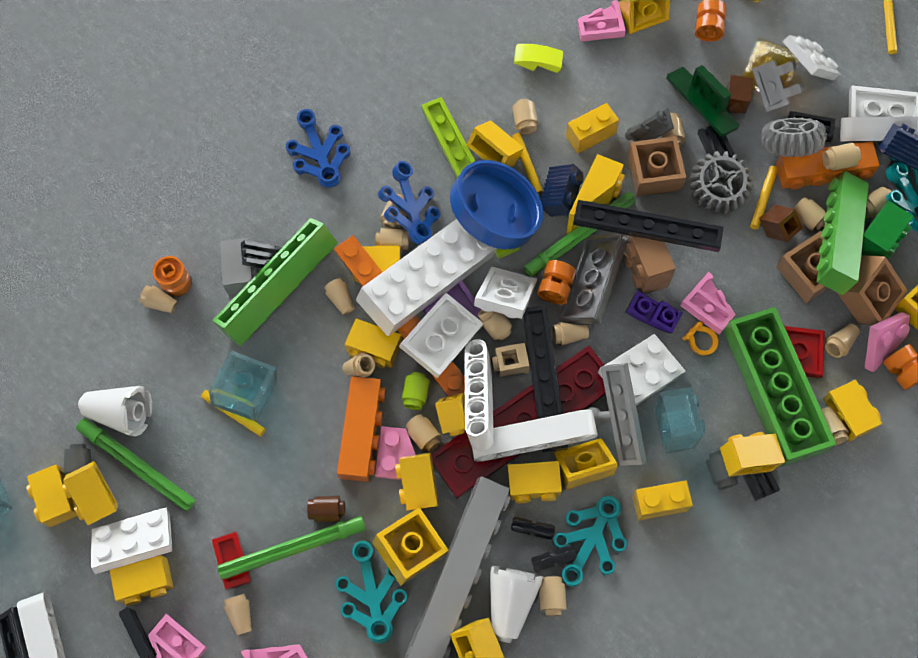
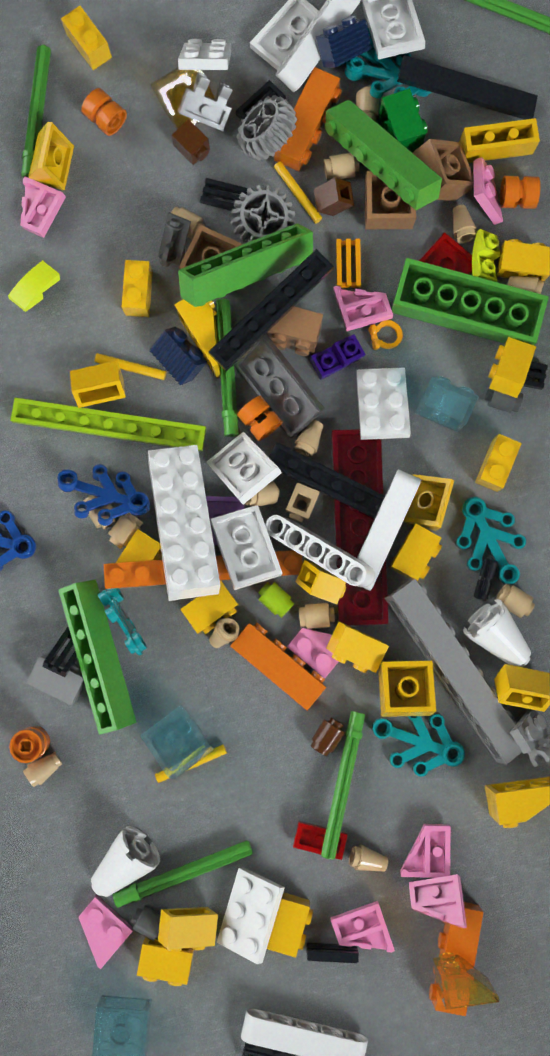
camera: 55 degrees left, 15 degrees up
(51, 431) = (103, 929): none -> bright pink wing
(321, 266) = (134, 640): none -> teal plant
(339, 295) = (146, 608): tan cone -> none
(496, 204) = (158, 421): blue piece -> none
(525, 116) = (84, 337): tan brick -> none
(538, 529) = (448, 581): black piece -> none
(622, 414) = (410, 445): light grey plate -> none
(668, 184) = (245, 264): none -> bright green brick
(706, 97) = (175, 171): dark green bracket -> none
(752, 261) = (348, 243): none -> light orange tile
(831, 374) = (485, 251): none -> neon yellow slope
(841, 156) = (314, 103): tan brick -> none

